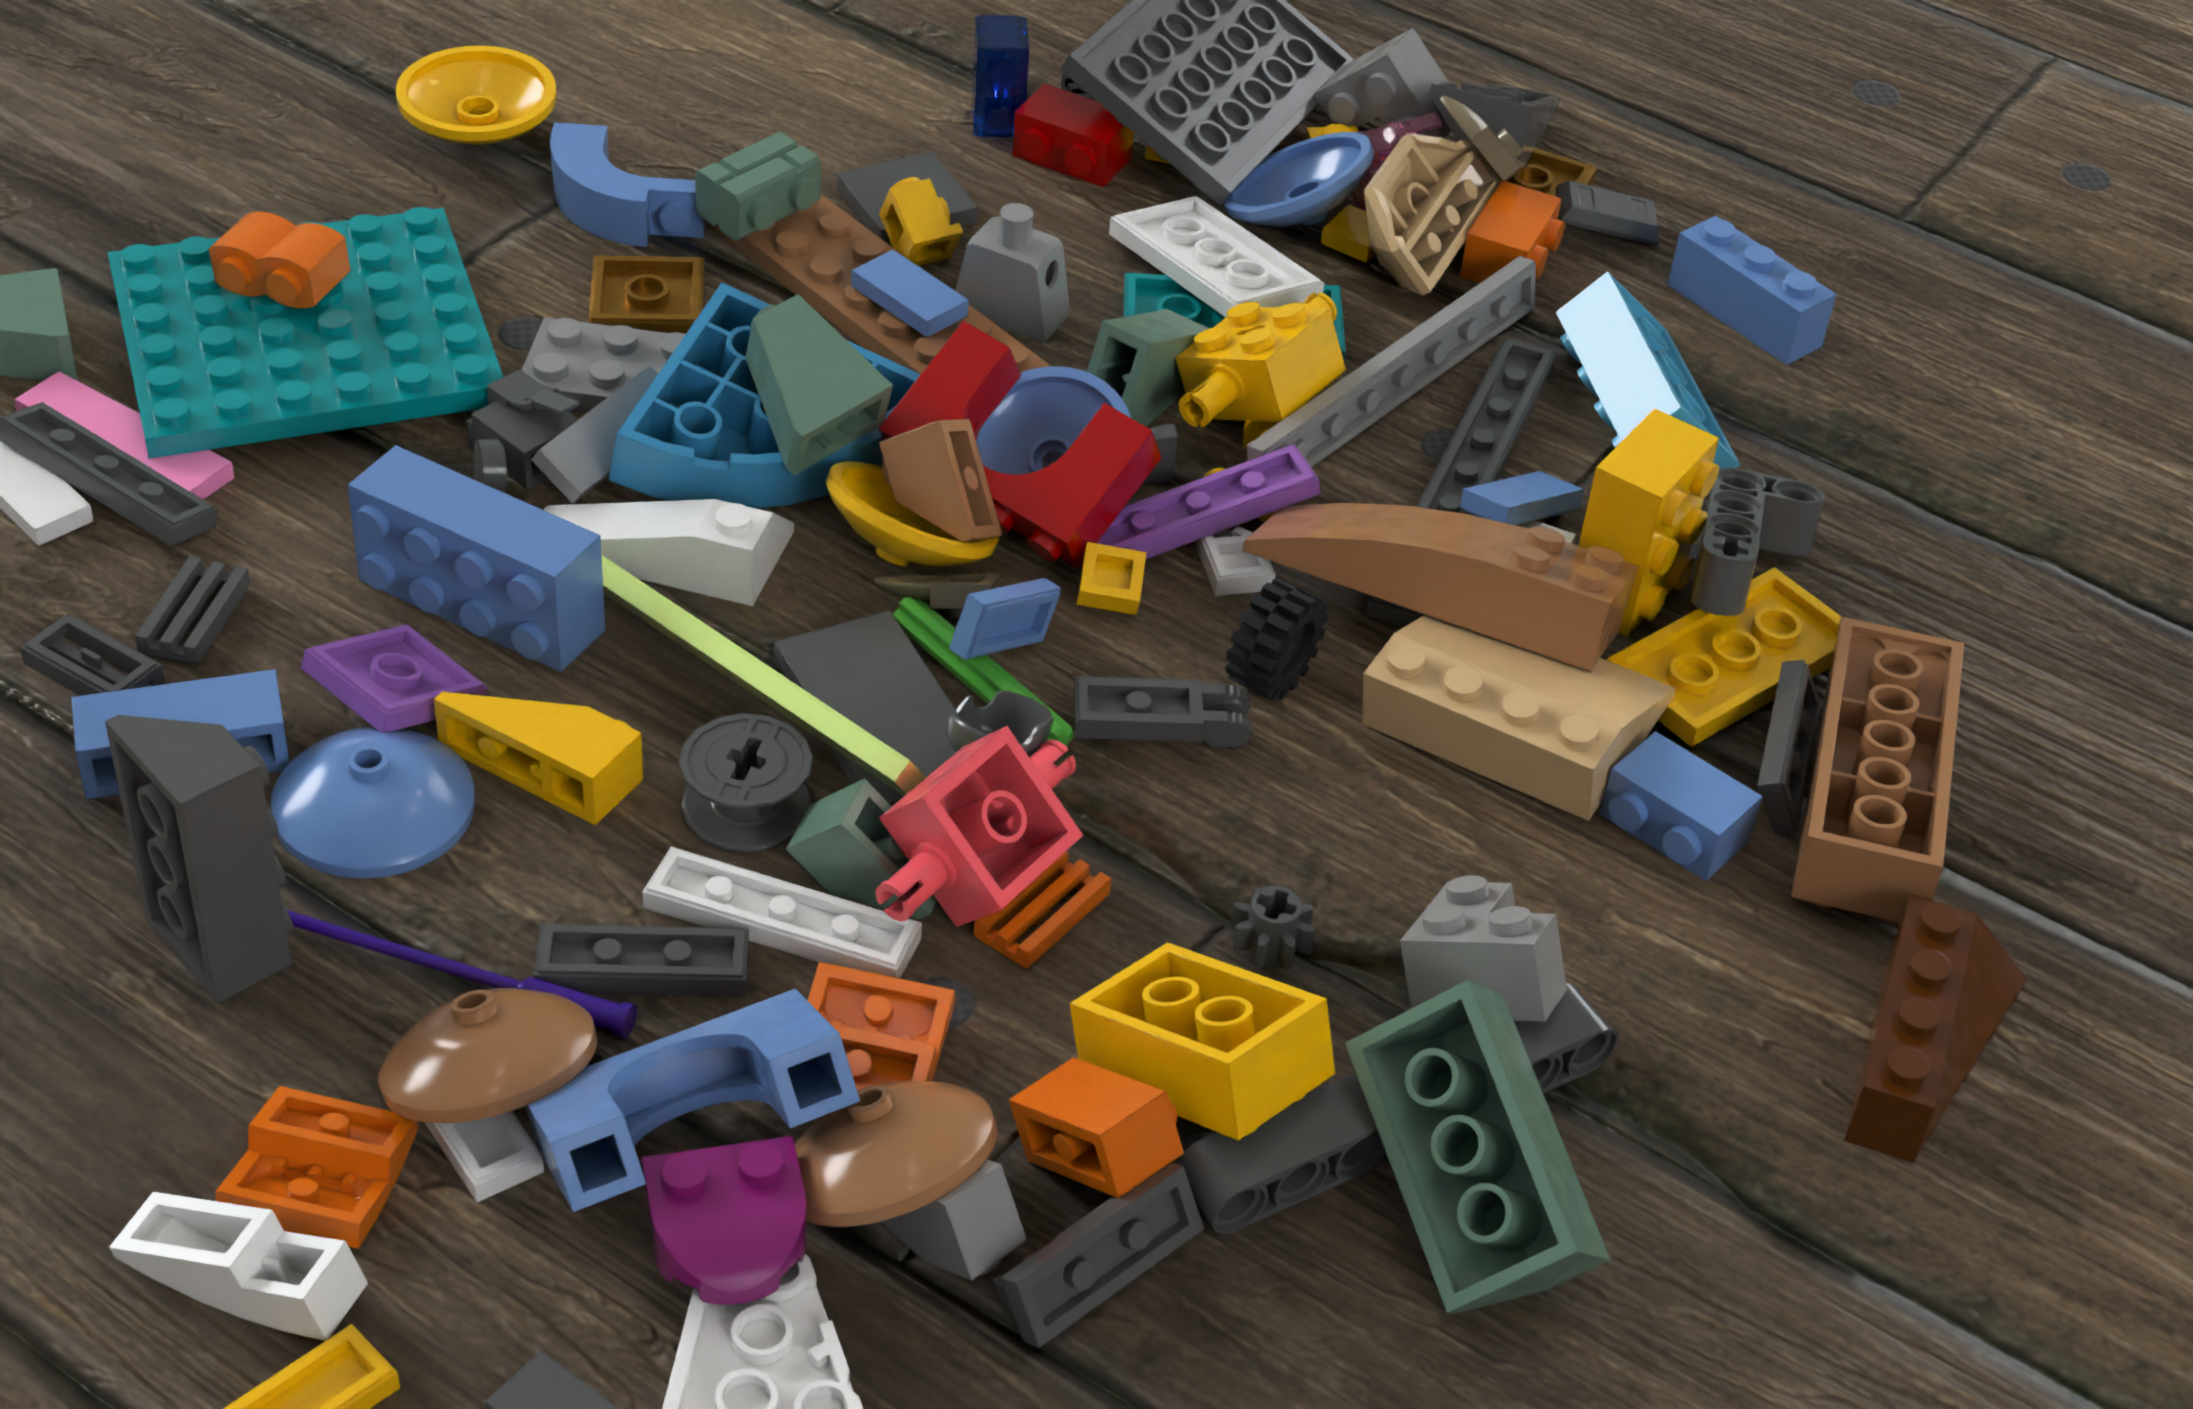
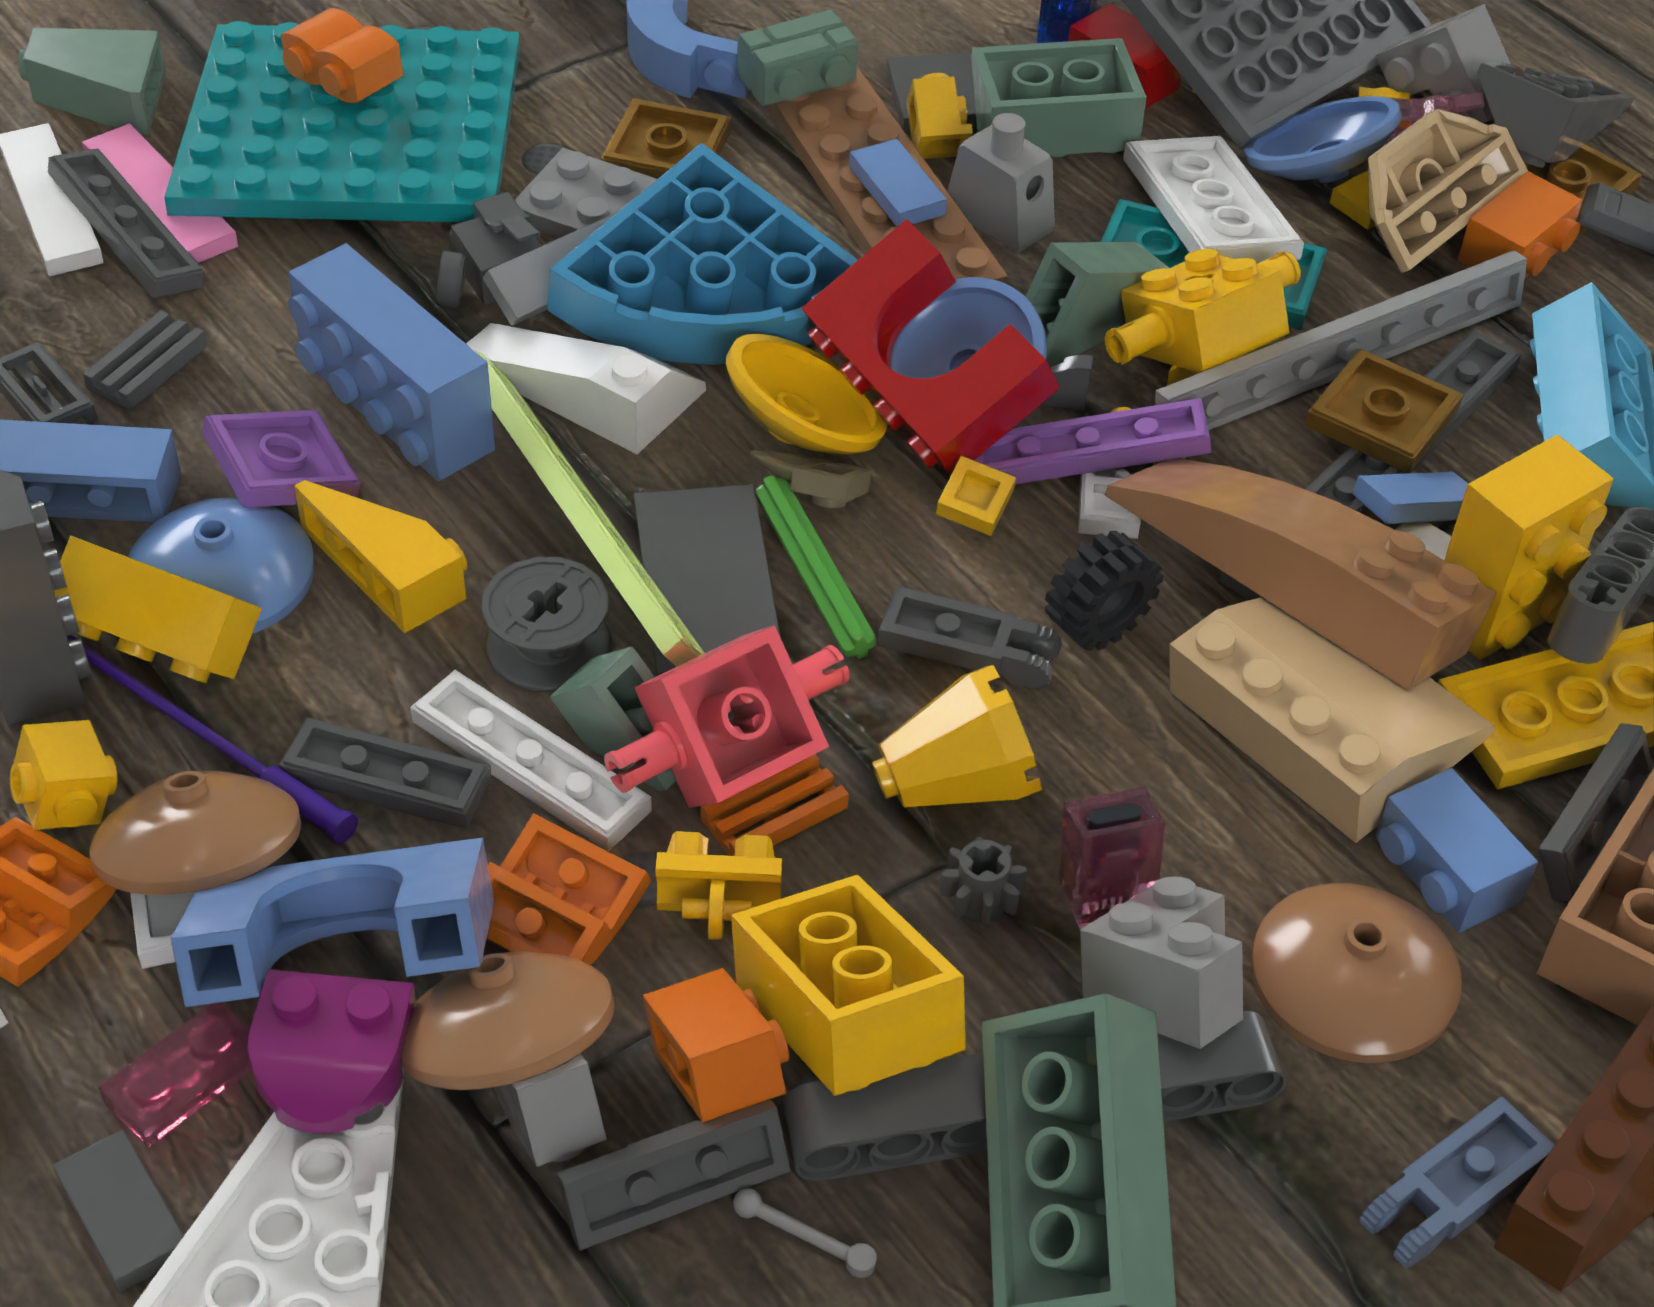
camera: 20 degrees right, 5 degrees up
(317, 1031) = (62, 775): none -> yellow brick
(360, 853) = (156, 612): none -> yellow brick
(571, 1286) = (179, 1073): none -> clear pink plate
(812, 383) = (746, 255): sand green slope -> none
(942, 478) = (837, 369): medium nougat slope -> none
(1005, 618) = (849, 515): medium blue tile -> none
(1023, 715) = (802, 622): dark grey hair -> none
(1024, 987) = (716, 884): none -> yellow hips
(1047, 166) = (1067, 92): none -> sand green slope
(1208, 808) = (959, 749): none -> yellow cone
(1298, 1290) = (859, 1258): none -> light grey hinge
(1383, 875) = (1109, 851): none -> clear pink piece
(1457, 426) = (1384, 410): none -> pearl gold tile
(1498, 148) = (1528, 137): dark tan plate -> none
(1637, 933) = (1351, 996): none -> medium nougat dish
(1799, 1085) = (1461, 1179): none -> sand blue hinge

